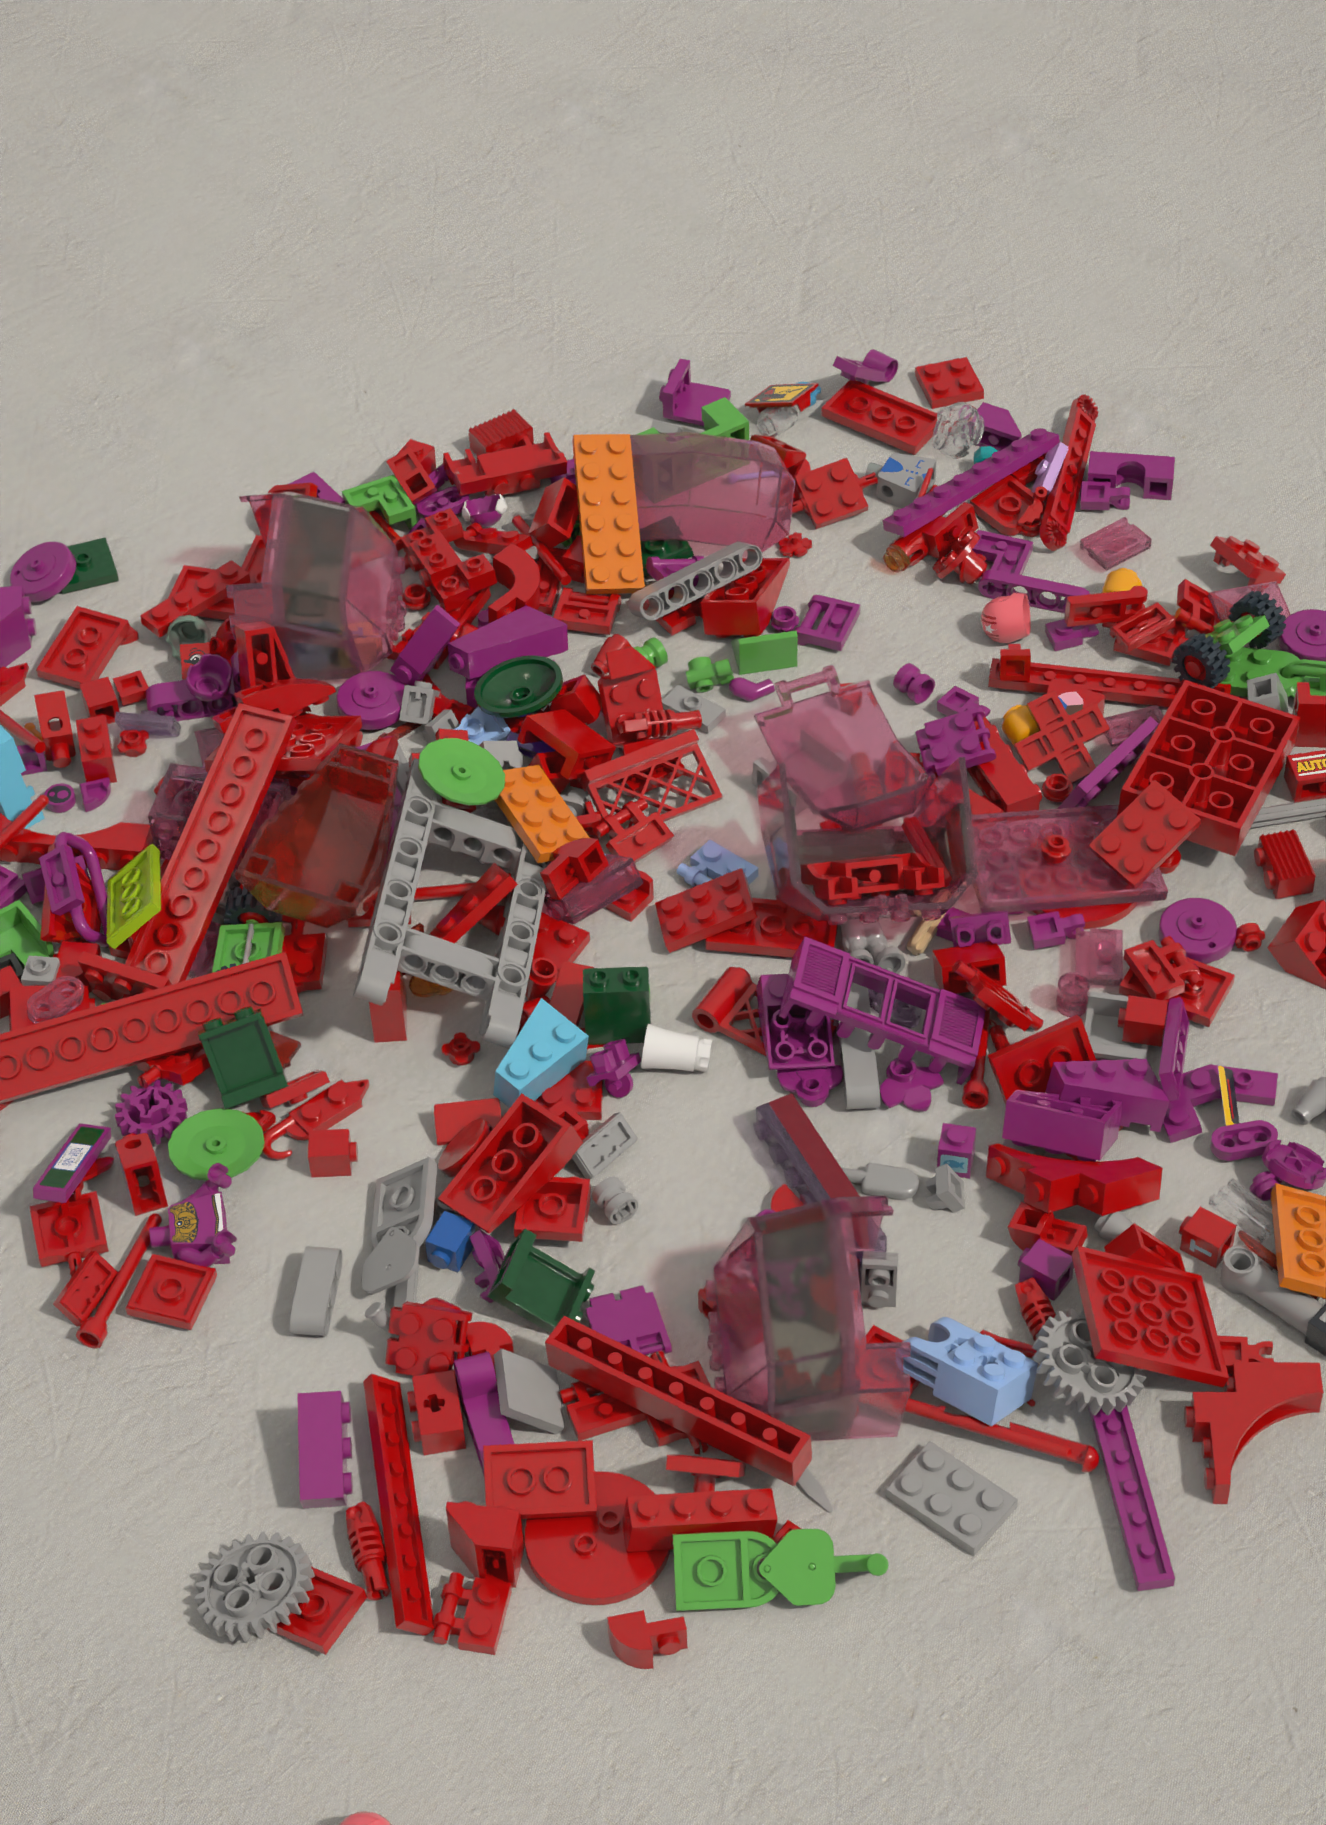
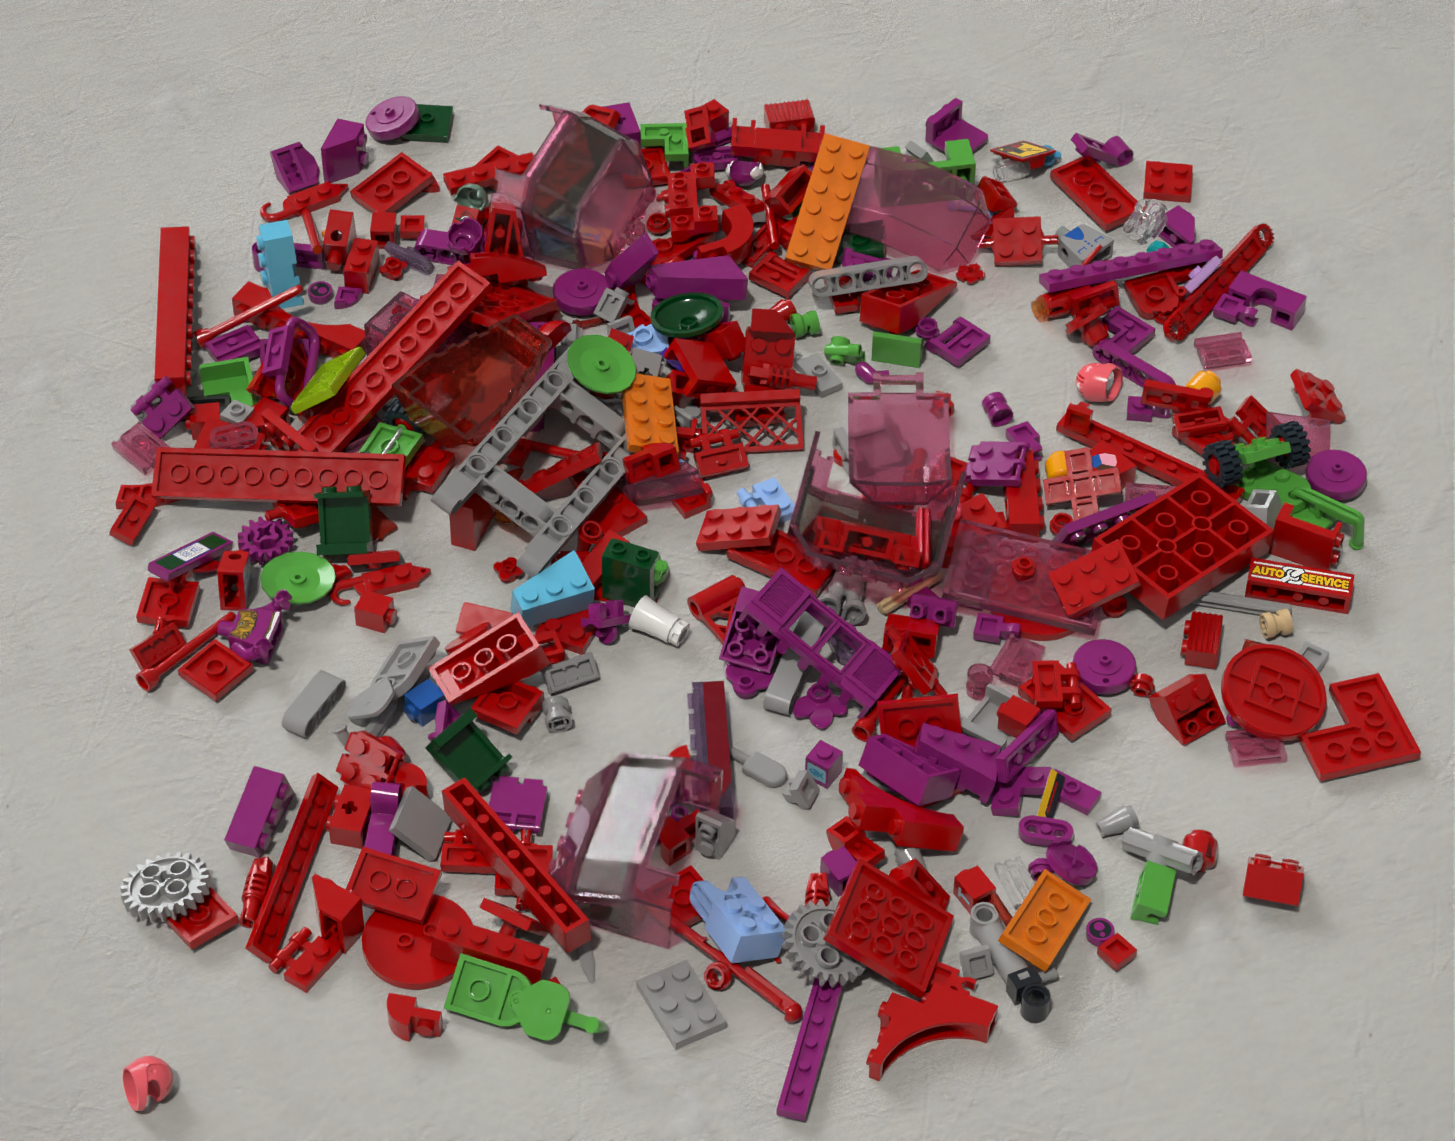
camera: 20 degrees right, 0 degrees up
(975, 1457) = (711, 979): none -> red plate
(1258, 1320) = (976, 962): none -> light grey tile

